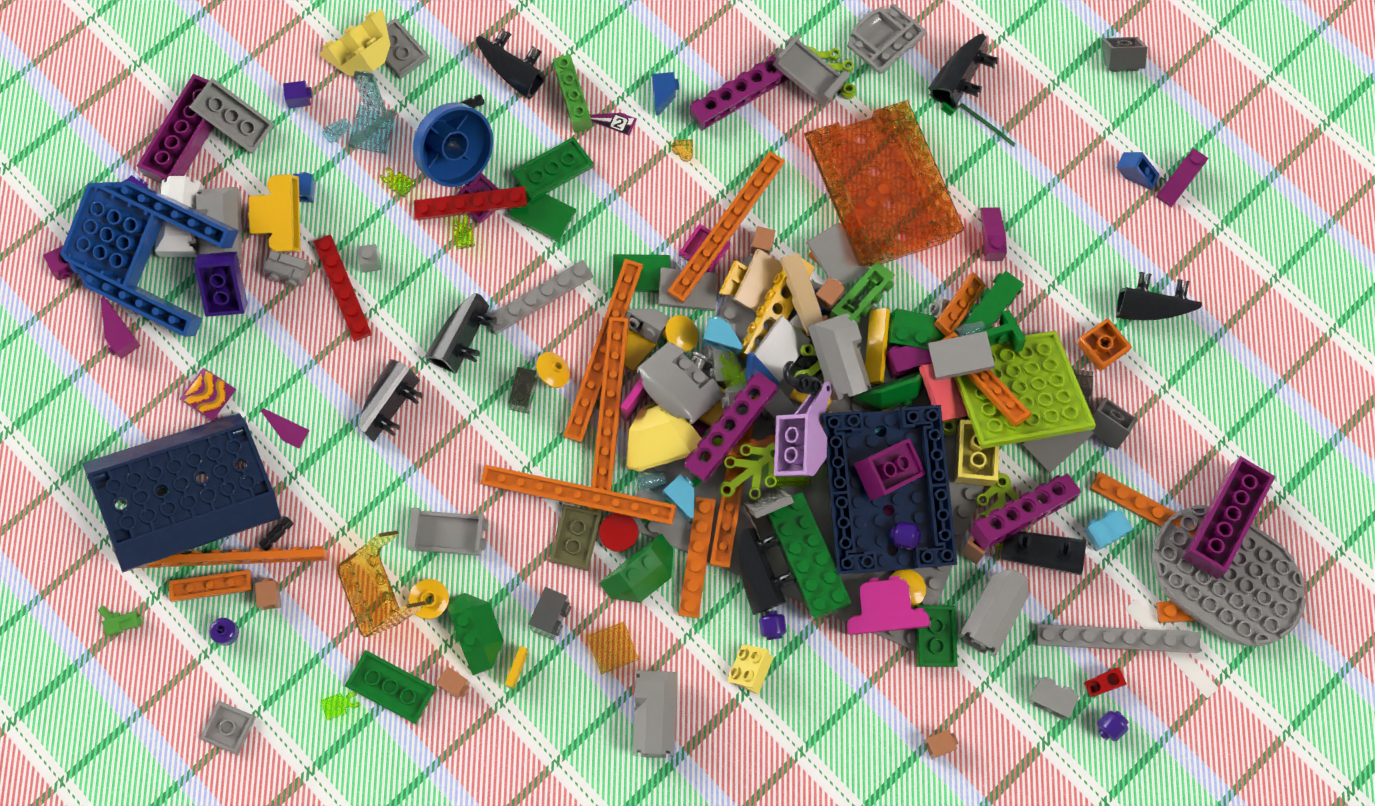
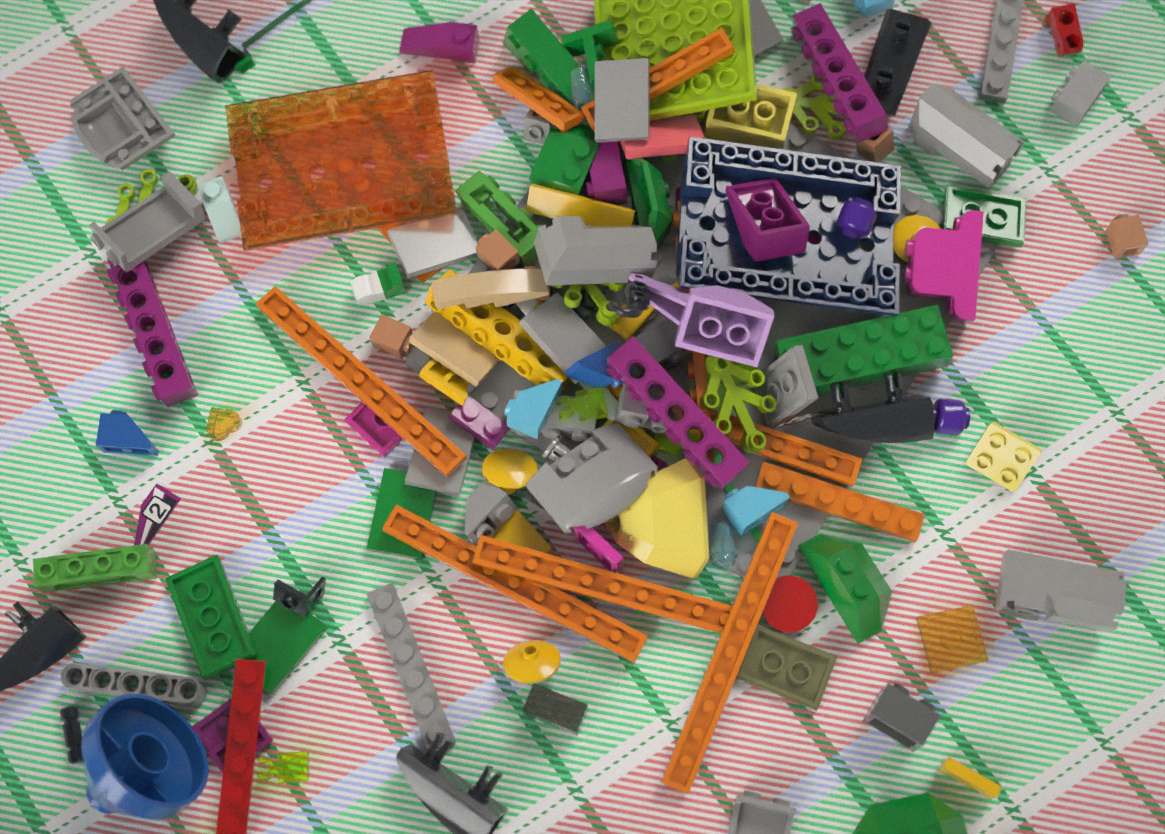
camera: 75 degrees left, 0 degrees up
(504, 140) = (122, 677): none -> light grey beam
(568, 222) = (297, 601): none -> black bracket
(711, 307) = (480, 422): none -> plate
(798, 227) = (378, 285): none -> leg
(836, 111) = (220, 208): none -> light aqua slope
(1112, 726) = (1121, 32): dark purple head -> none

